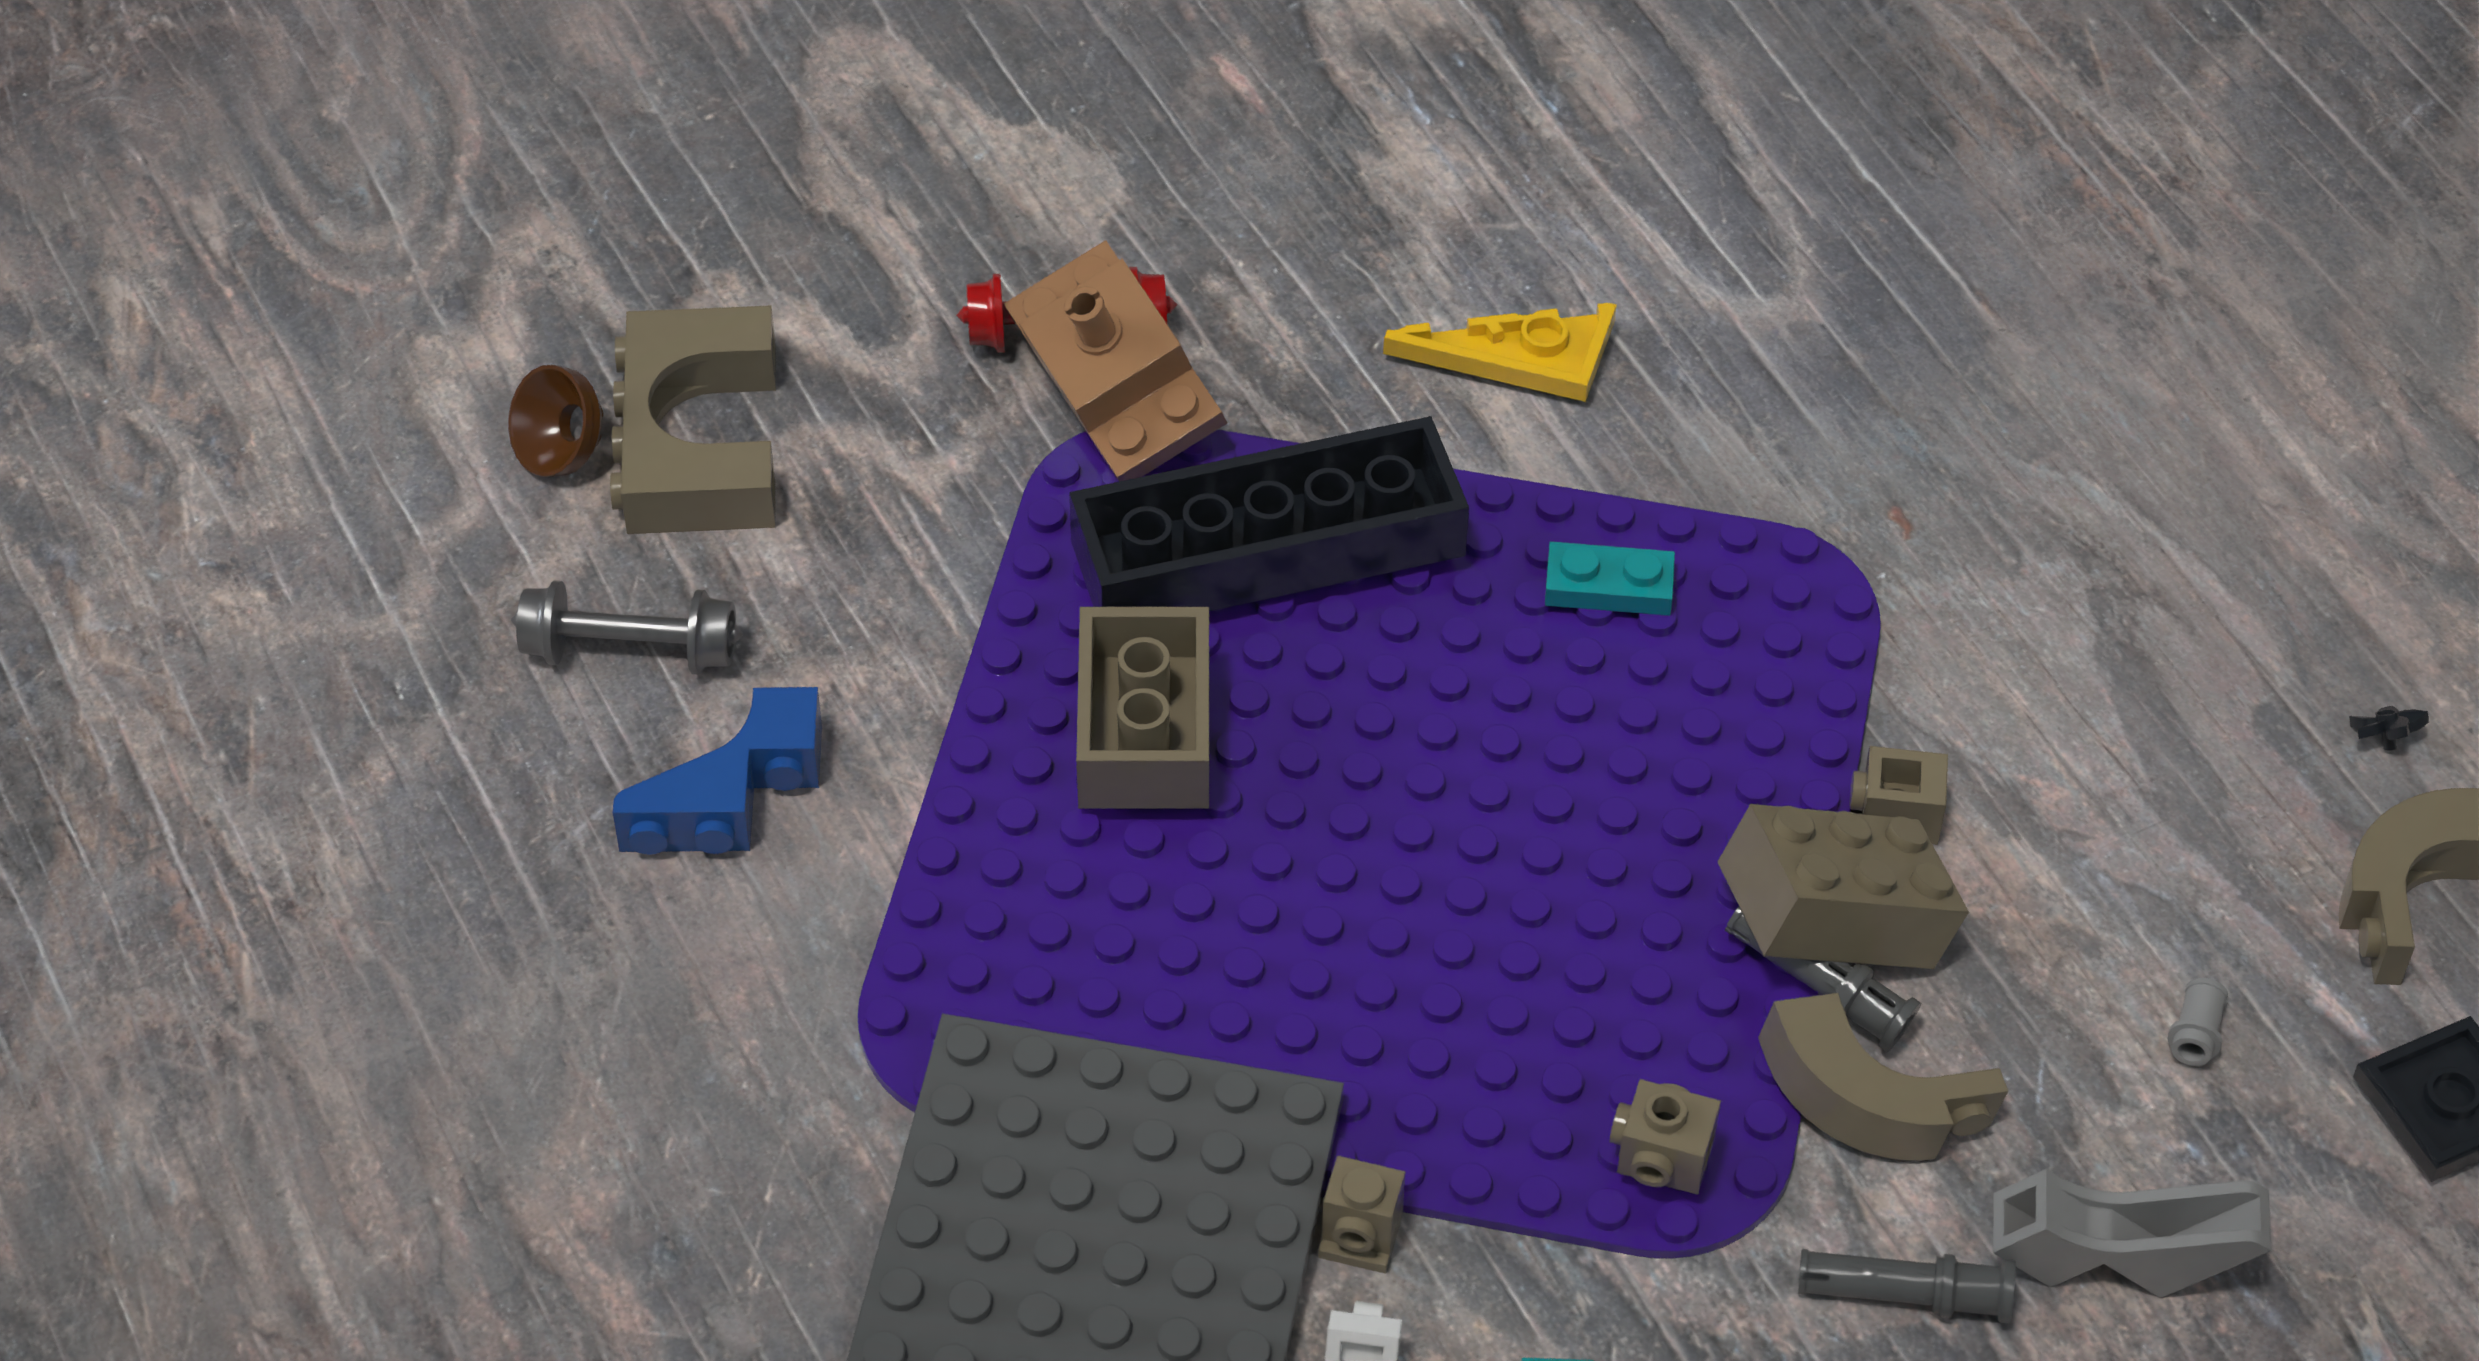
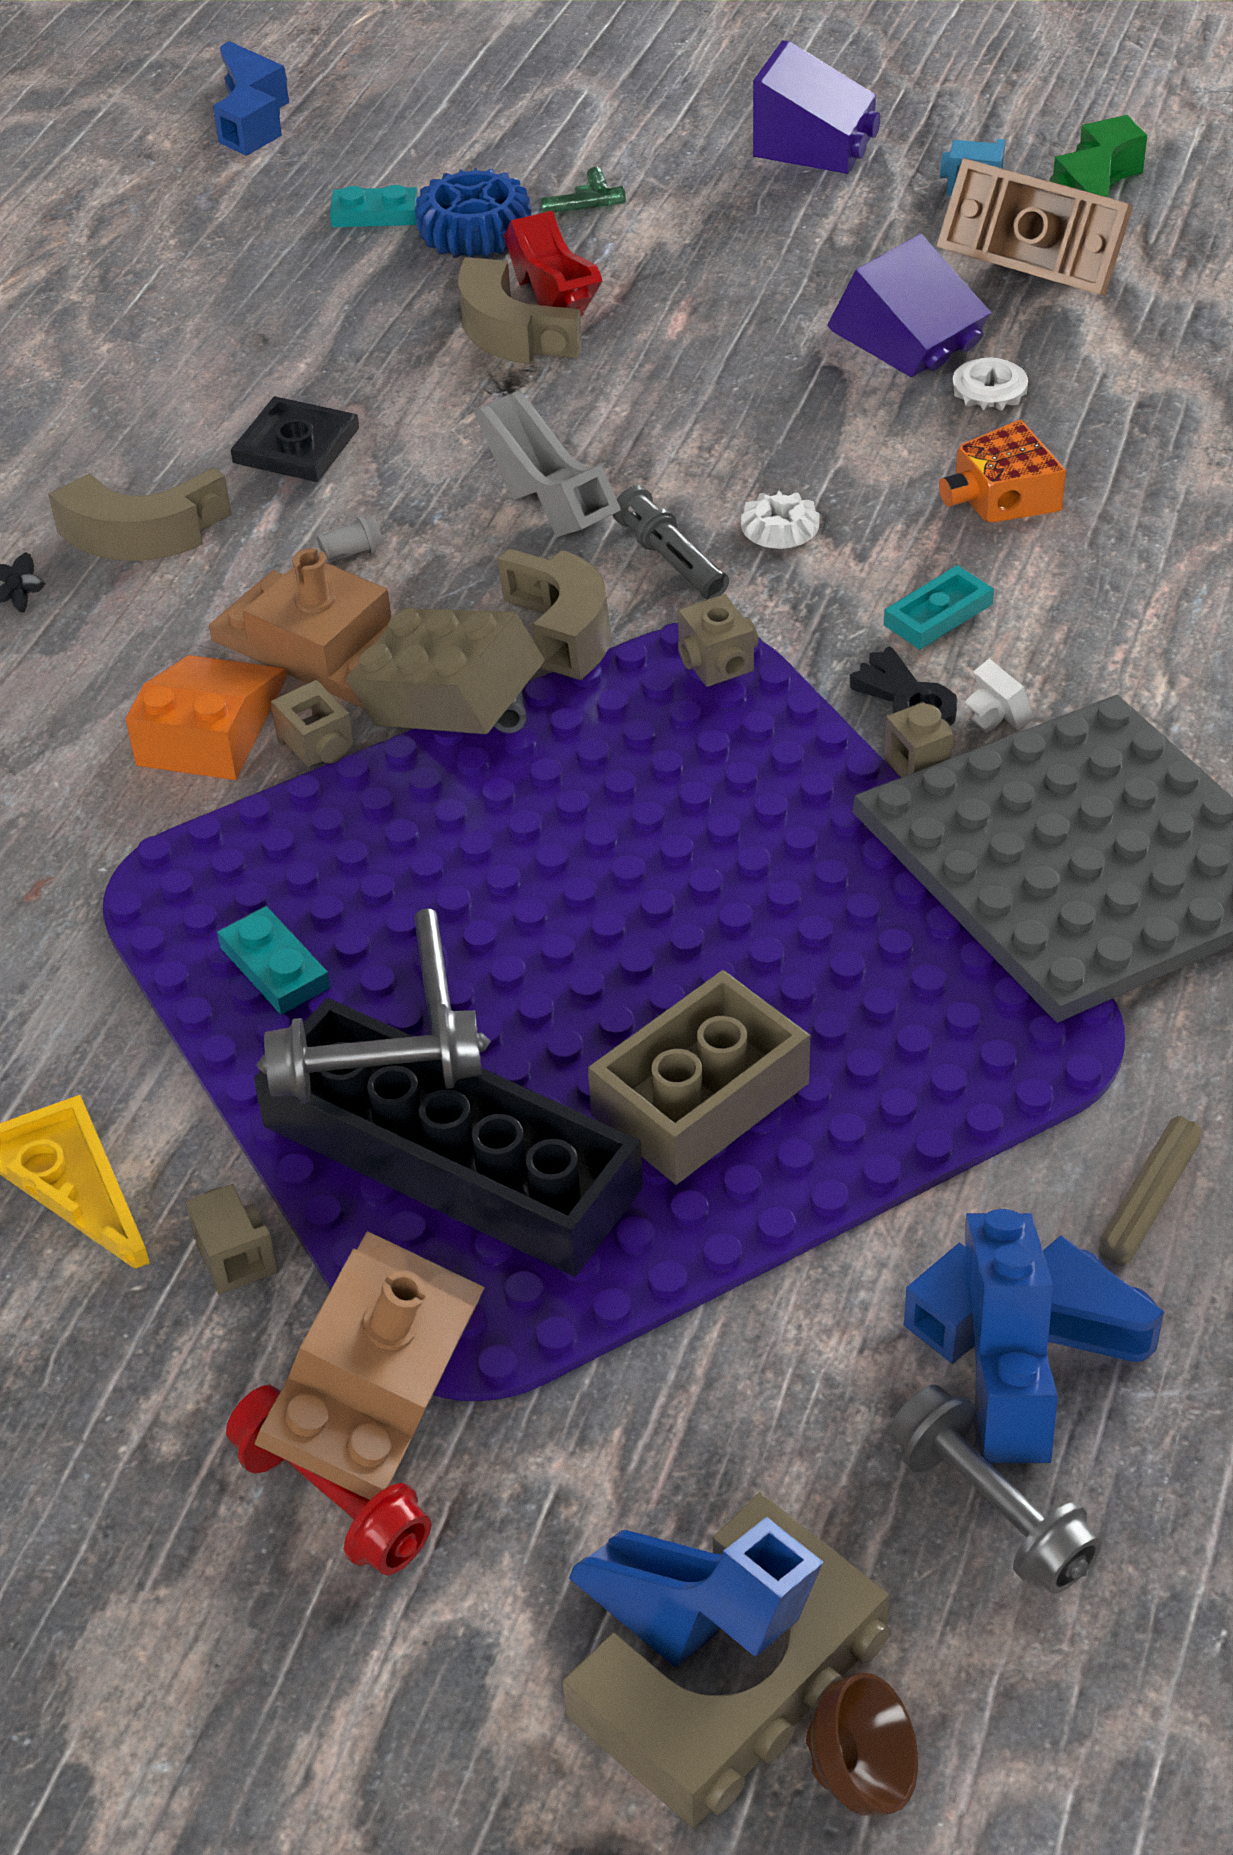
camera: 130 degrees left, 5 degrees down
(711, 699) = (1011, 1333): none -> blue arch
(733, 957) = (1150, 1191): none -> dark tan axle
(788, 407) = (684, 1594): none -> blue arch
(1299, 499) = (290, 1060): none -> flat silver piece
(1344, 389) = (231, 1239): none -> dark tan brick
(1436, 1292) = (893, 681): none -> black piece
(1443, 648) = (432, 965): none -> flat silver bar
(2021, 743) = (202, 715): none -> orange slope
(2066, 897) = (307, 621): none -> medium nougat brick

